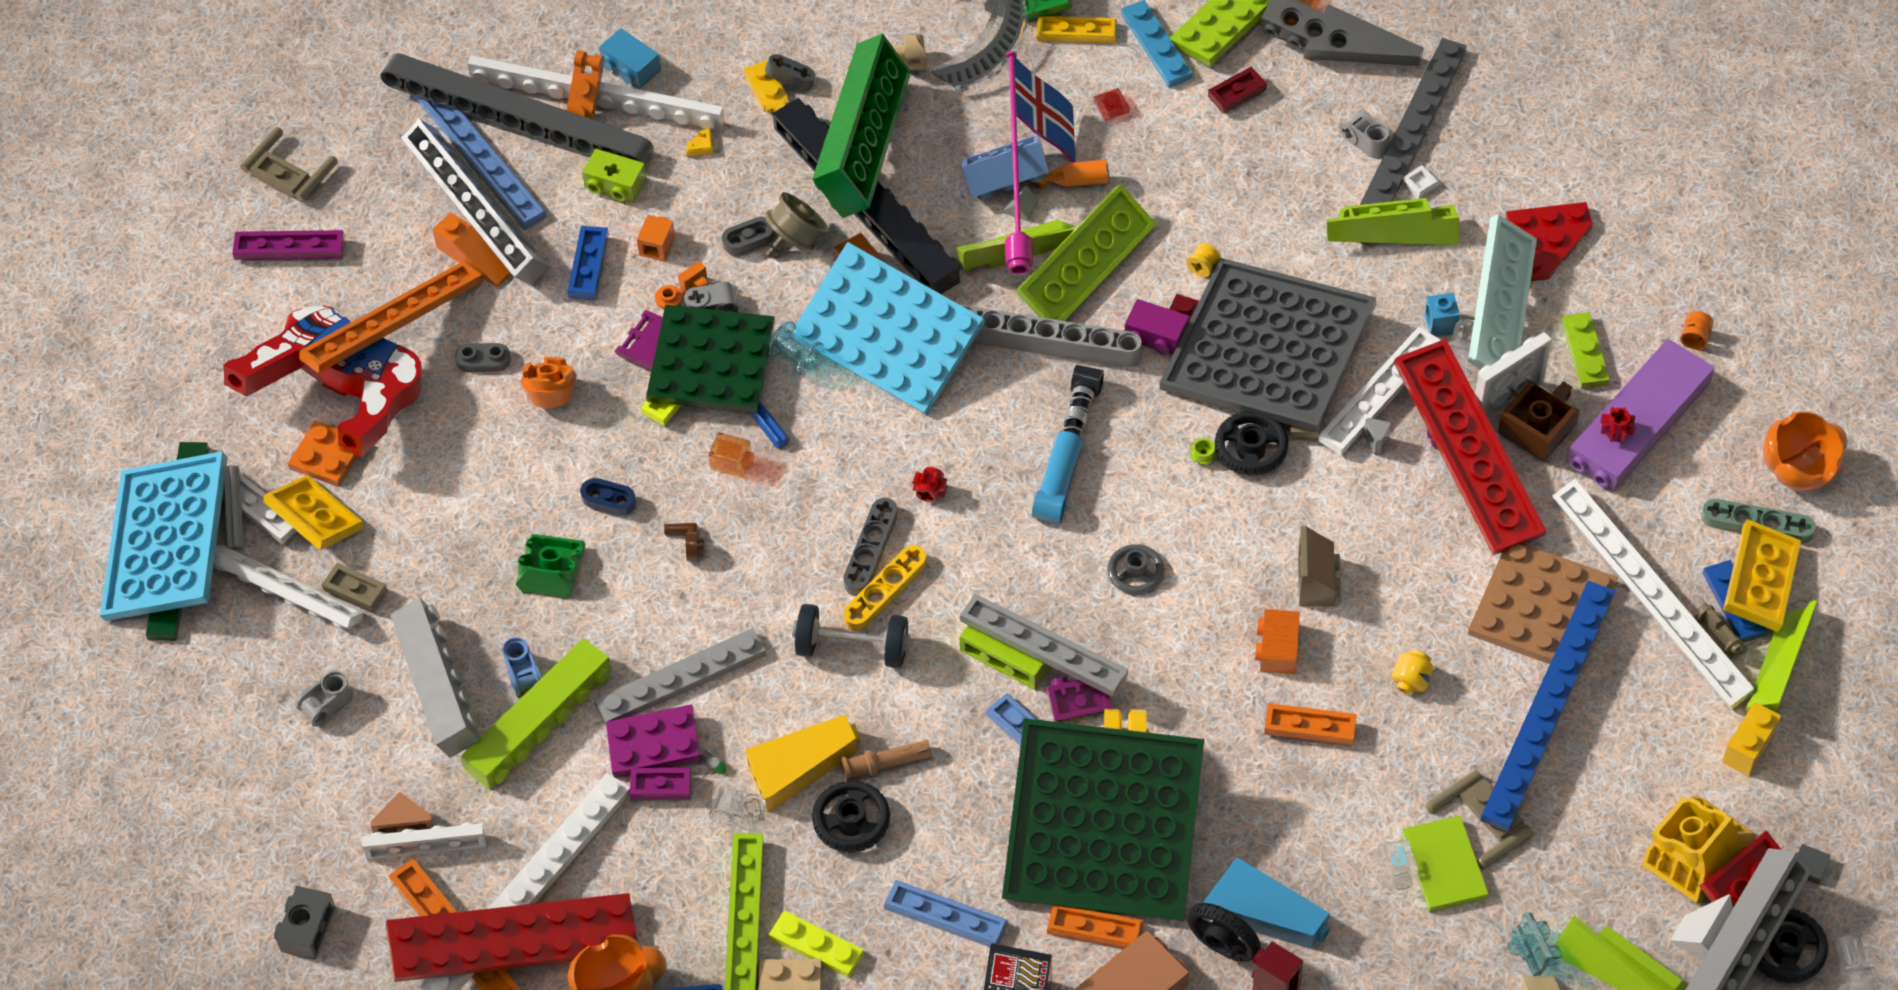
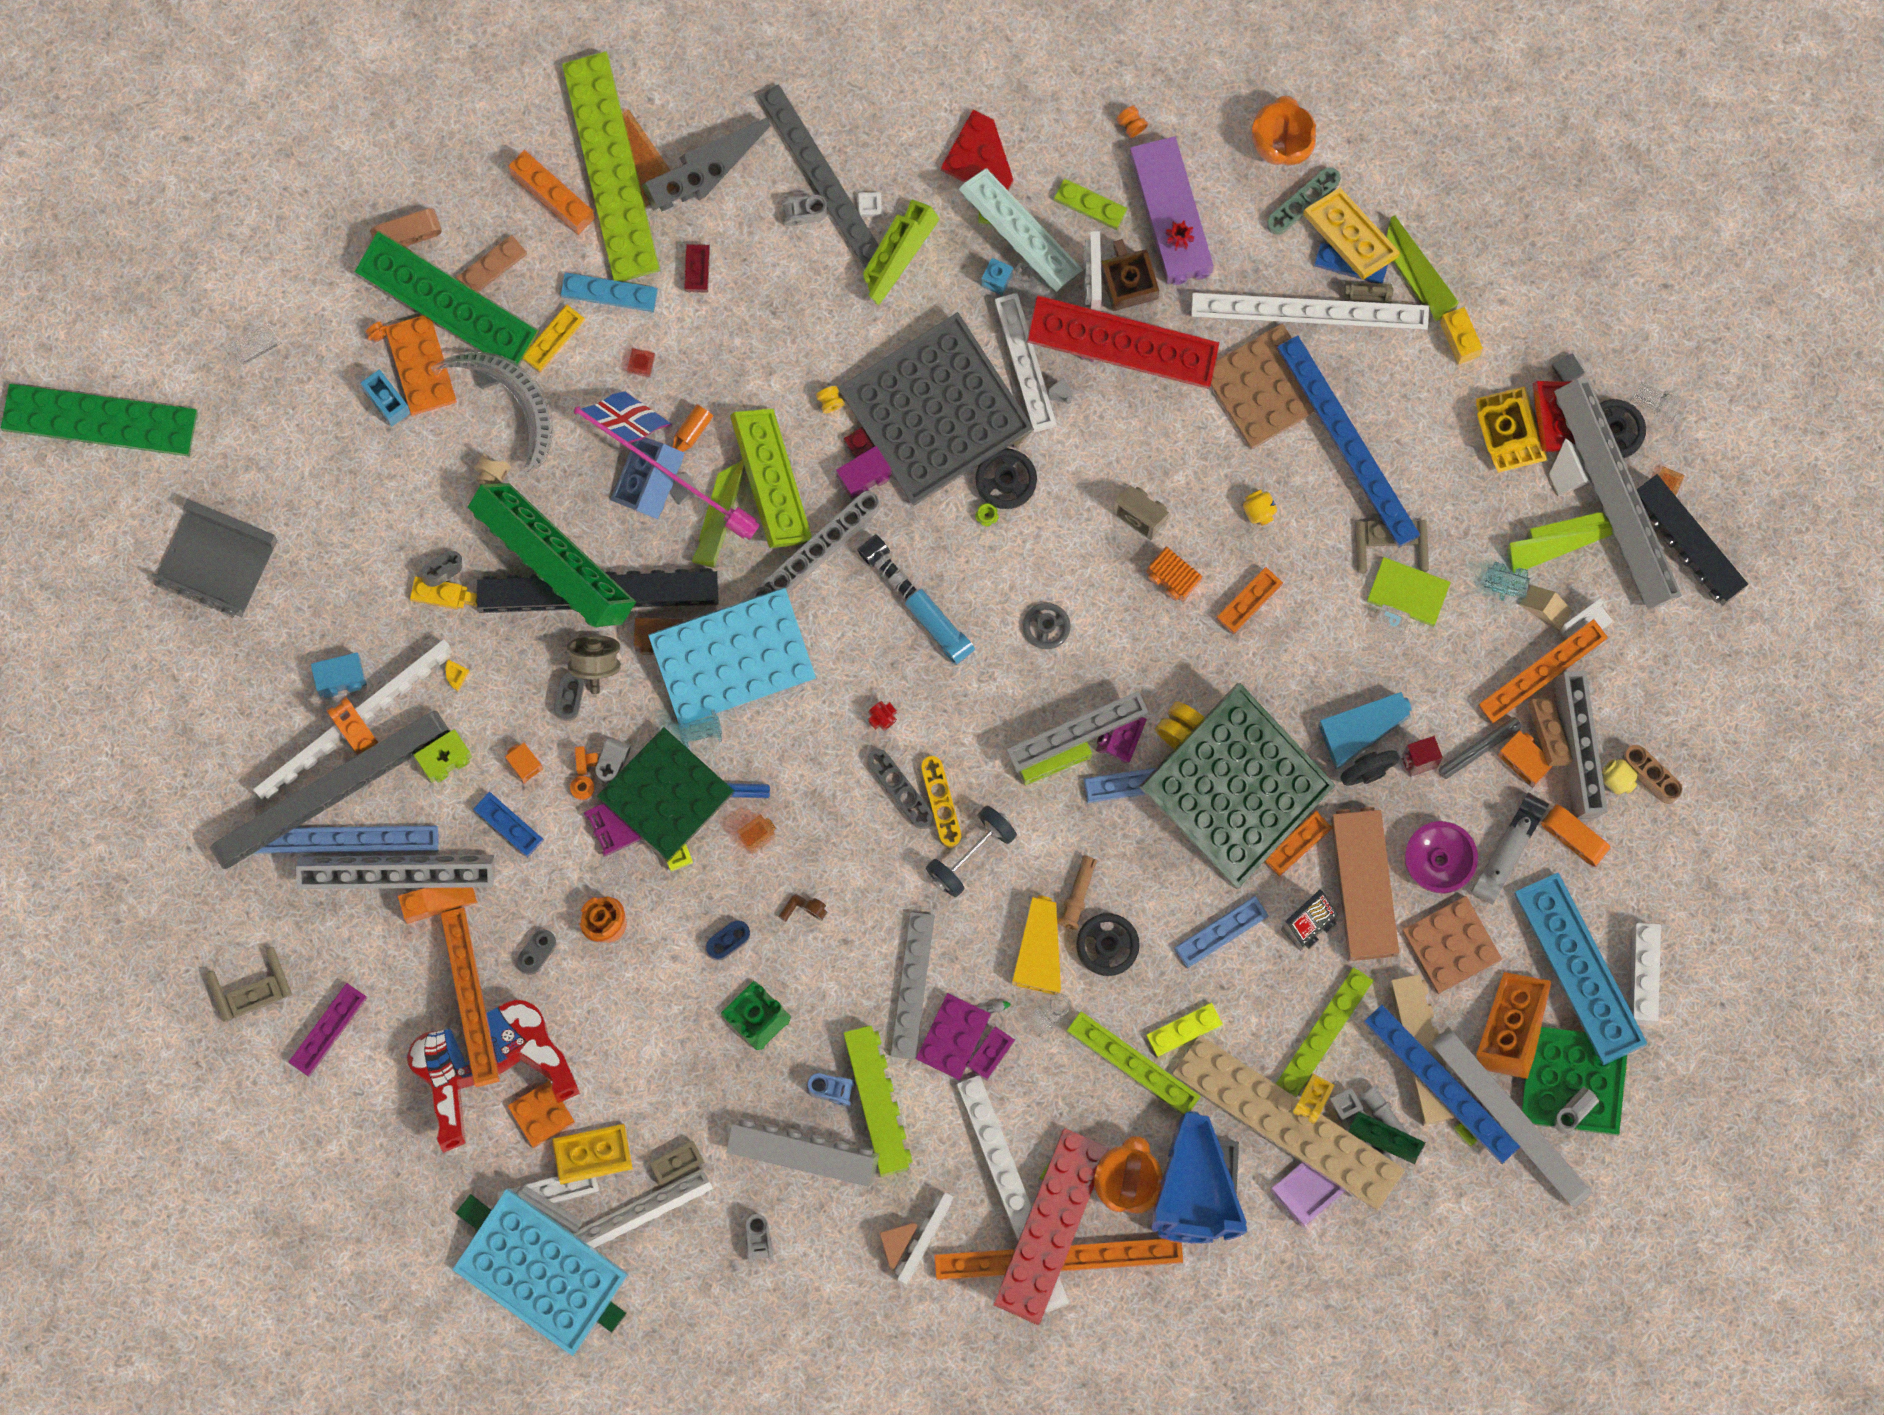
camera: 60 degrees left, 20 degrees up
(306, 938) = (929, 1342): dark grey brick -> none

